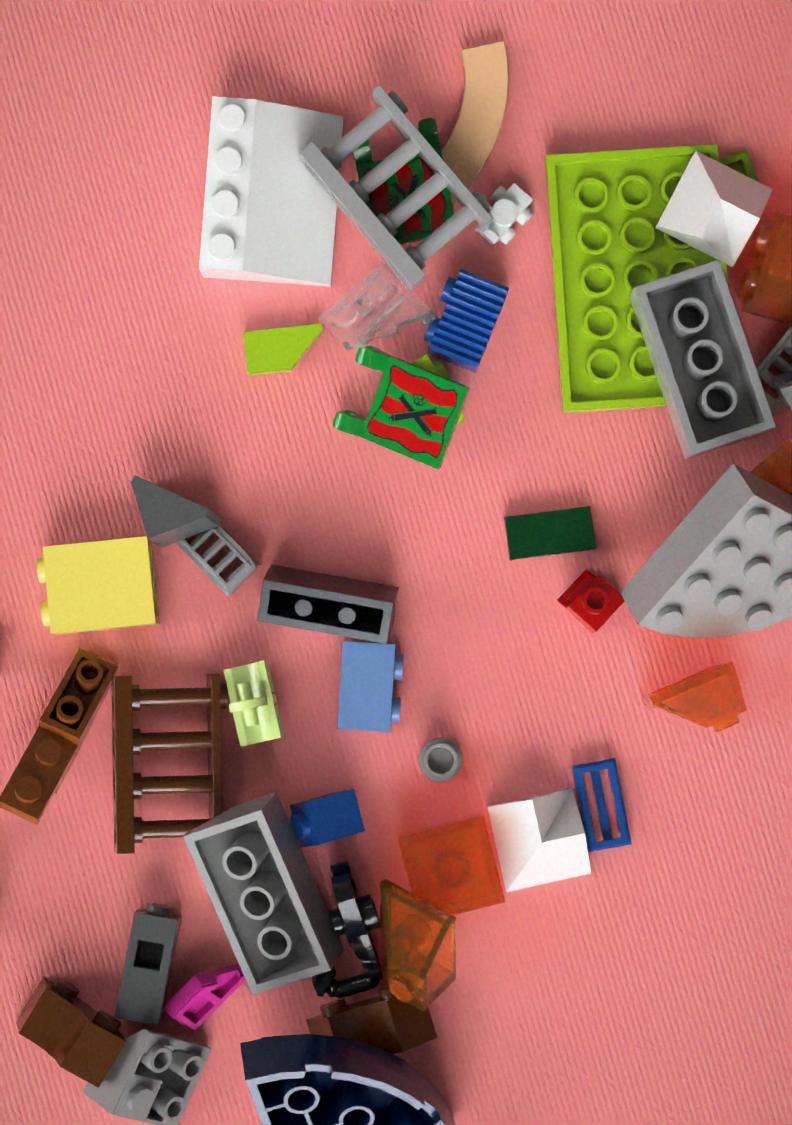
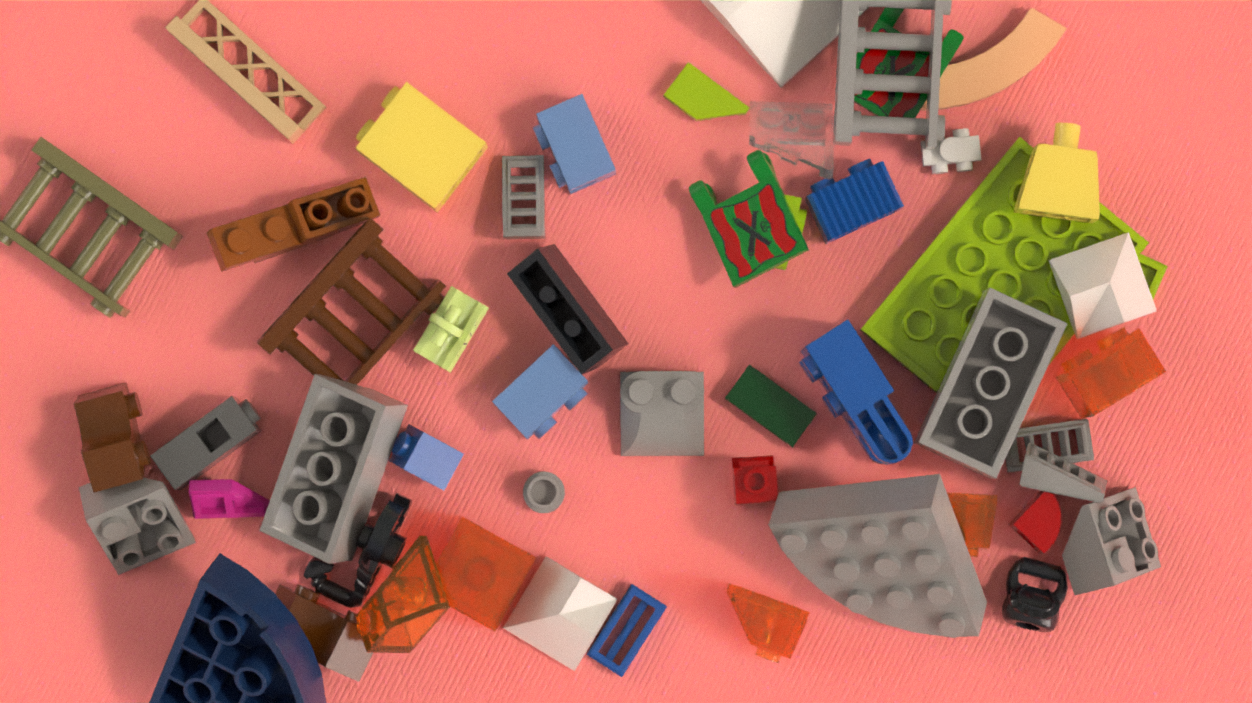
camera: 45 degrees right, 0 degrees up
(168, 515) = (514, 142): dark grey slope -> none
(215, 474) = (574, 144): none -> medium blue brick
(473, 616) = (662, 413): none -> light grey slope
(608, 461) = (857, 392): none -> blue brick
(609, 156) = (1061, 179): none -> light yellow torso

